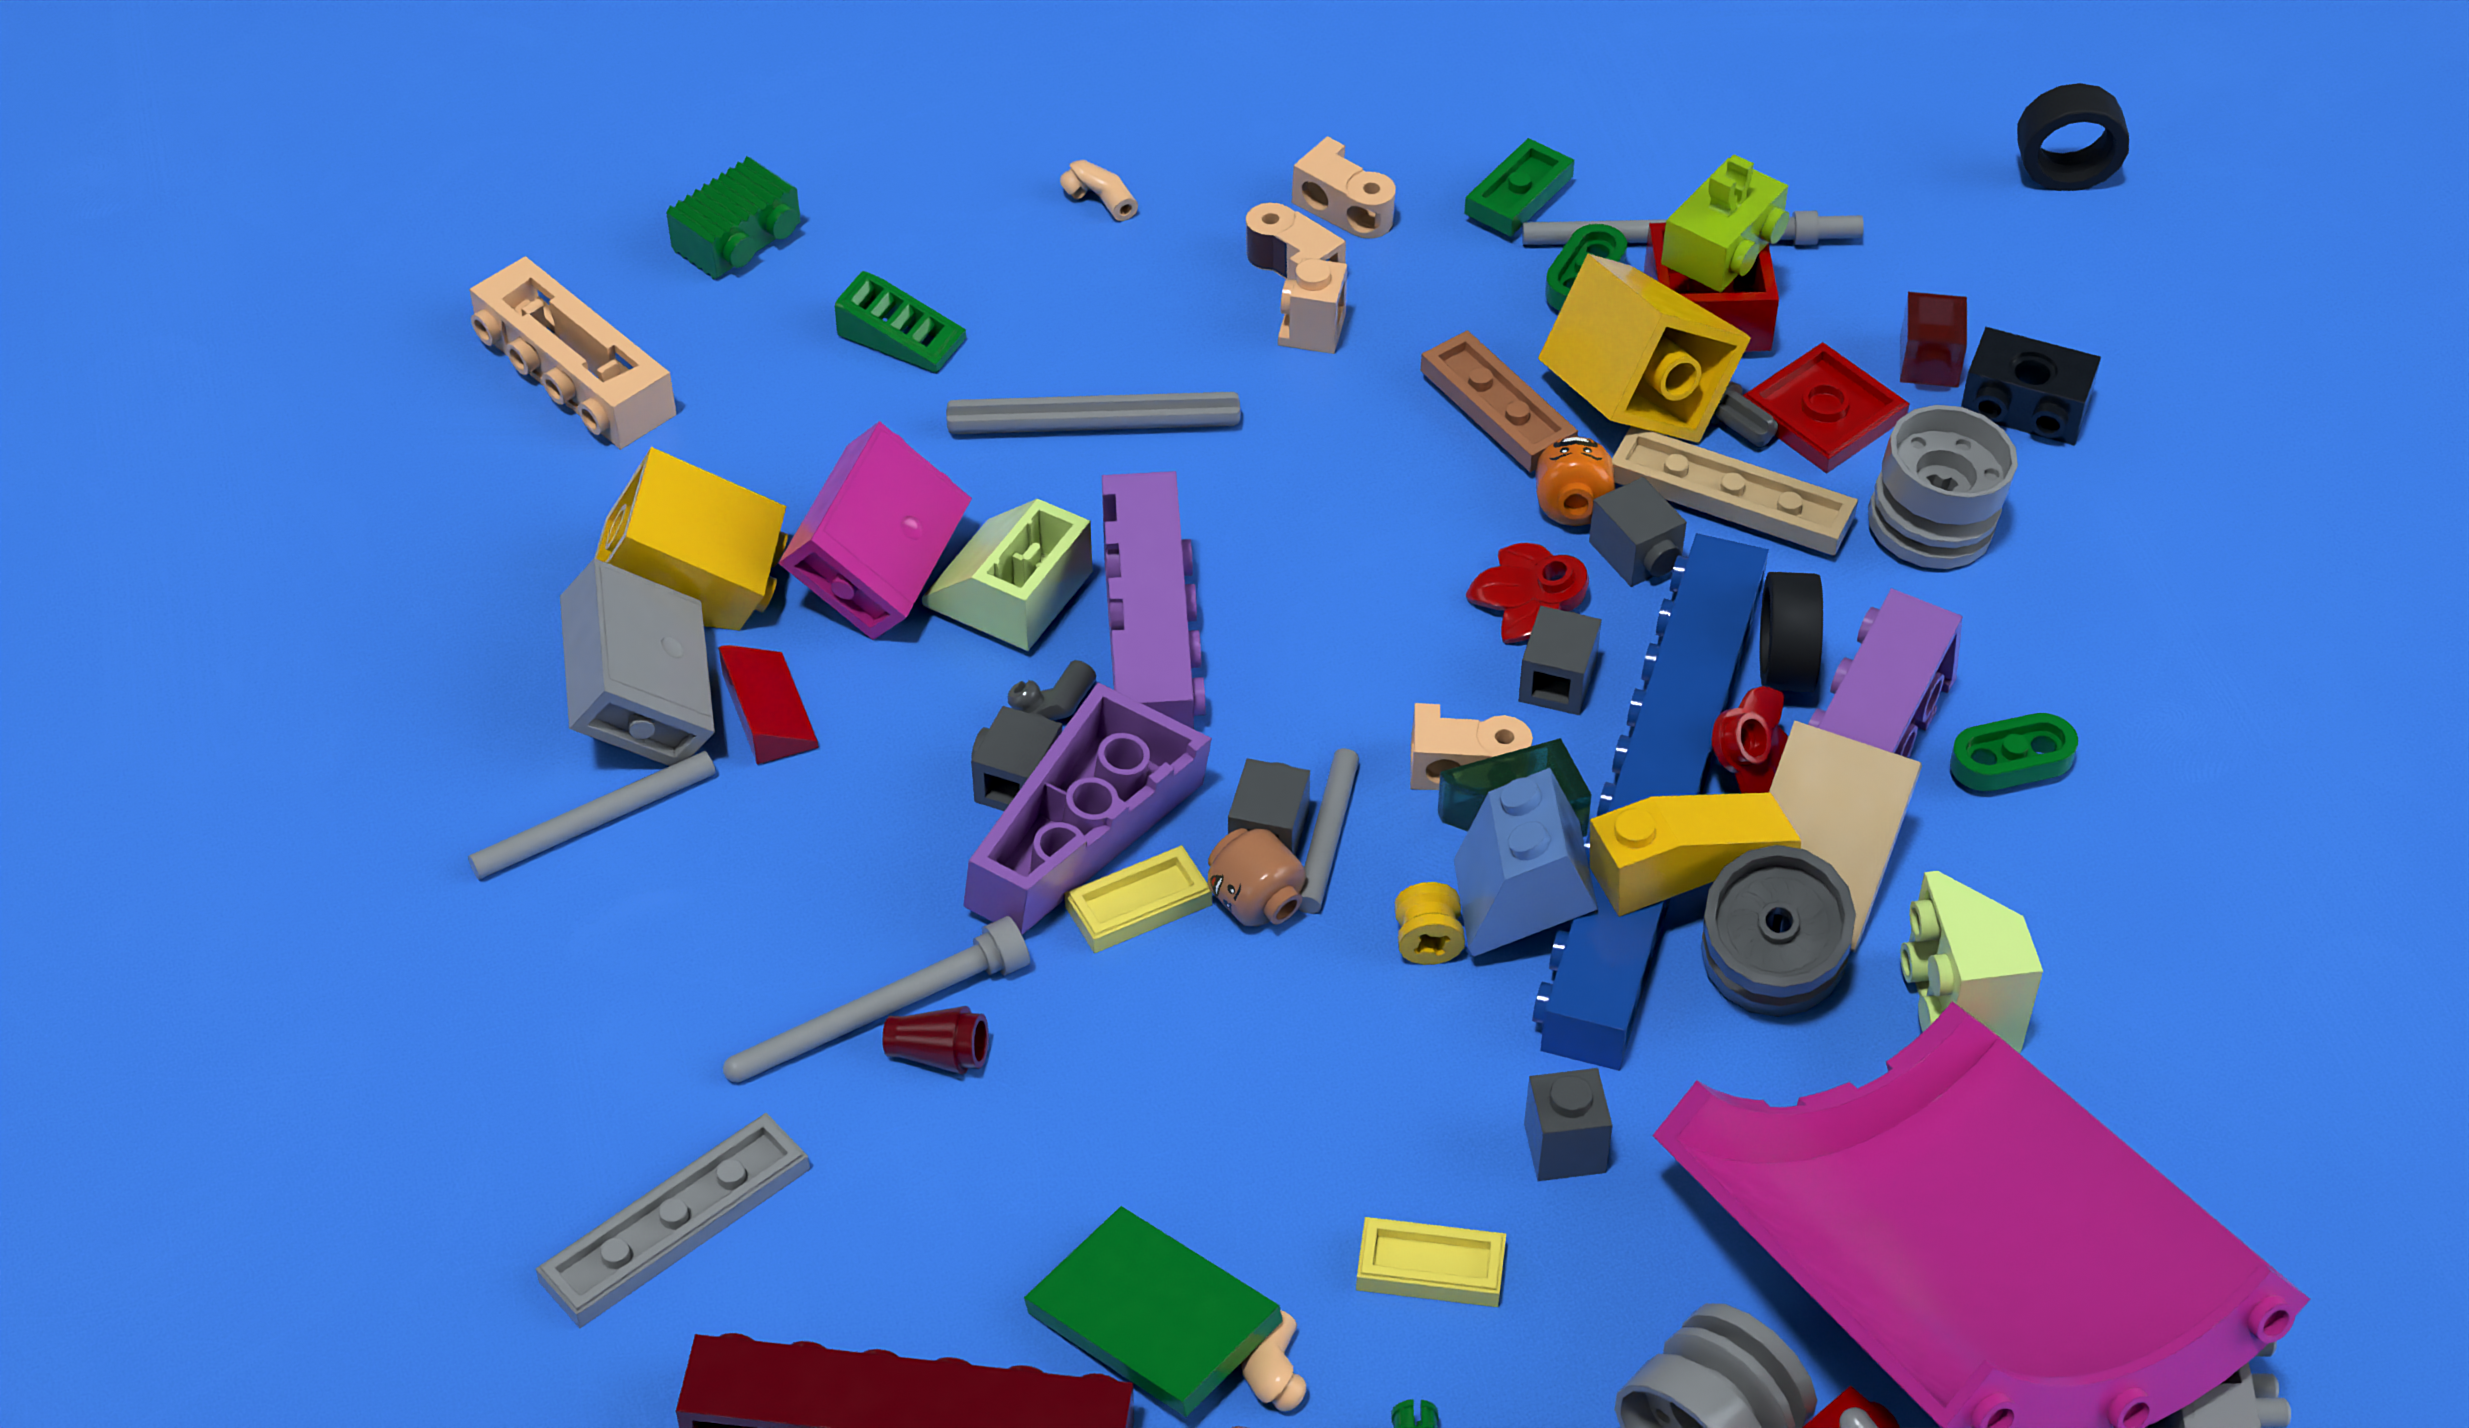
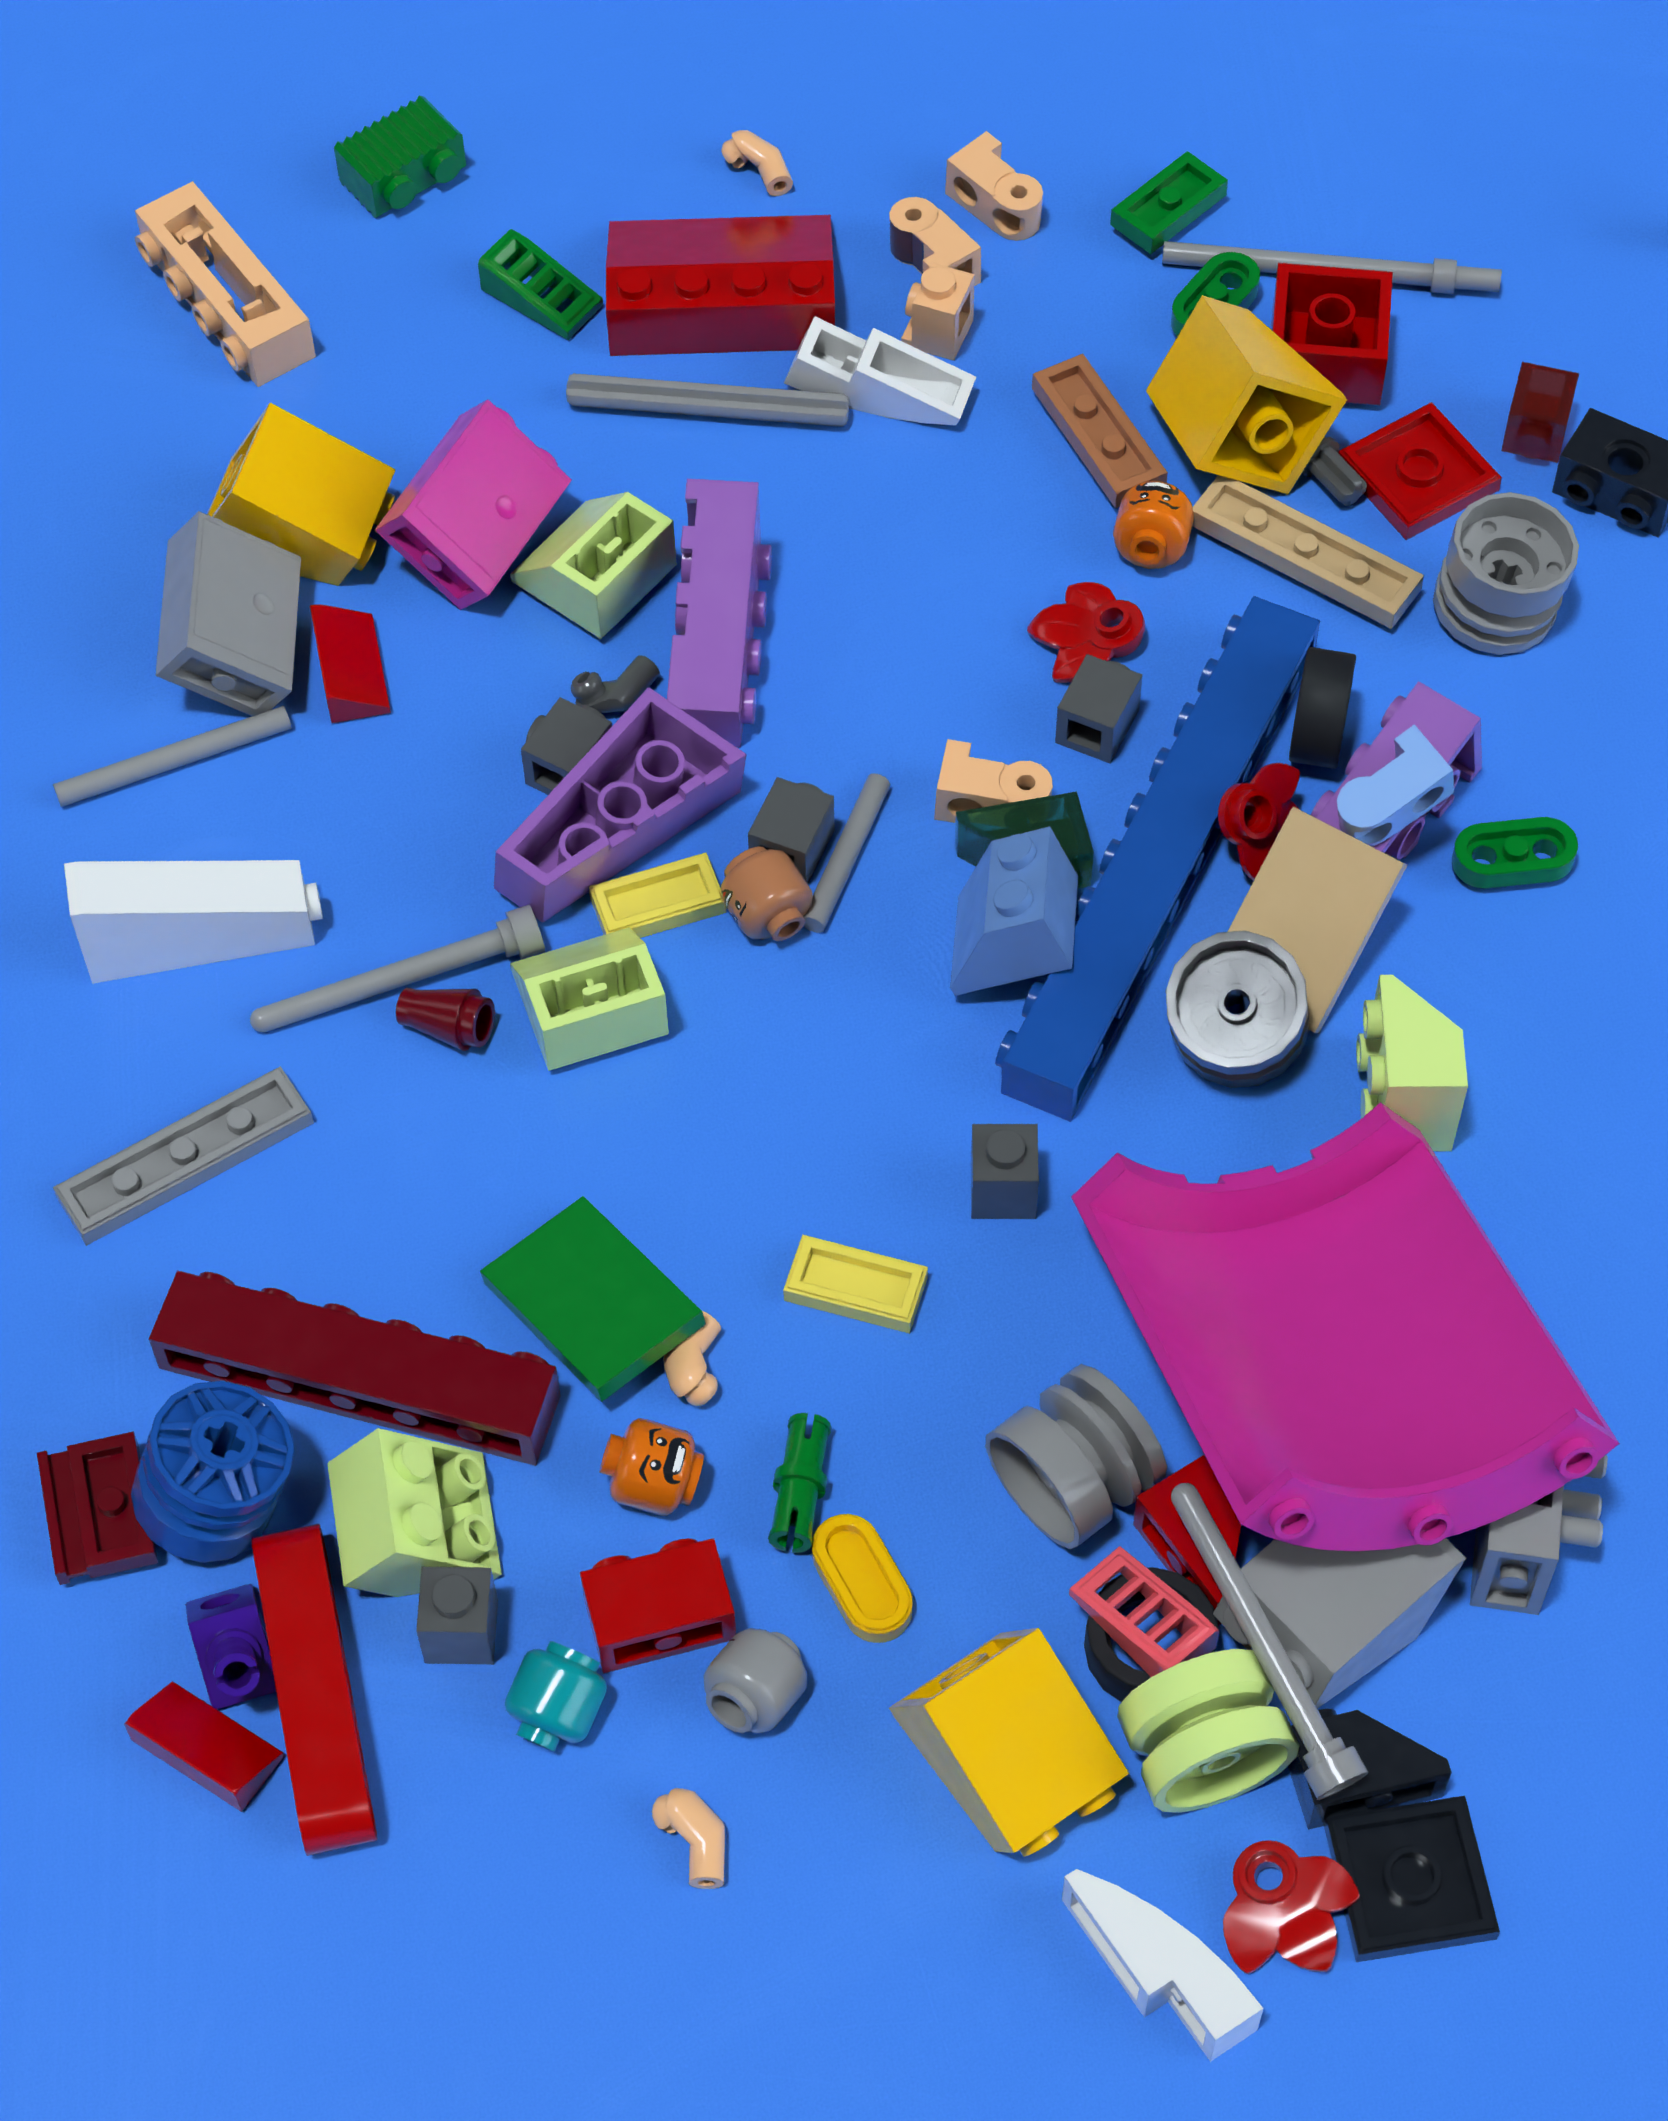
camera: 10 degrees right, 10 degrees up
(640, 965) = (186, 913): none -> white slope
(1087, 306) = (717, 283): none -> red slope
(1093, 1001) = (592, 997): none -> yellowish green slope
(1265, 371) = (880, 375): none -> slope
(1429, 923) = (919, 958): yellow wheel -> none
(1637, 531) = (1202, 584): dark grey brick -> none
(1679, 843) = (1162, 913): yellow slope -> none
(1725, 224) = (1347, 276): lime brick -> none
(1899, 694) = (1396, 794): none -> light blue leg

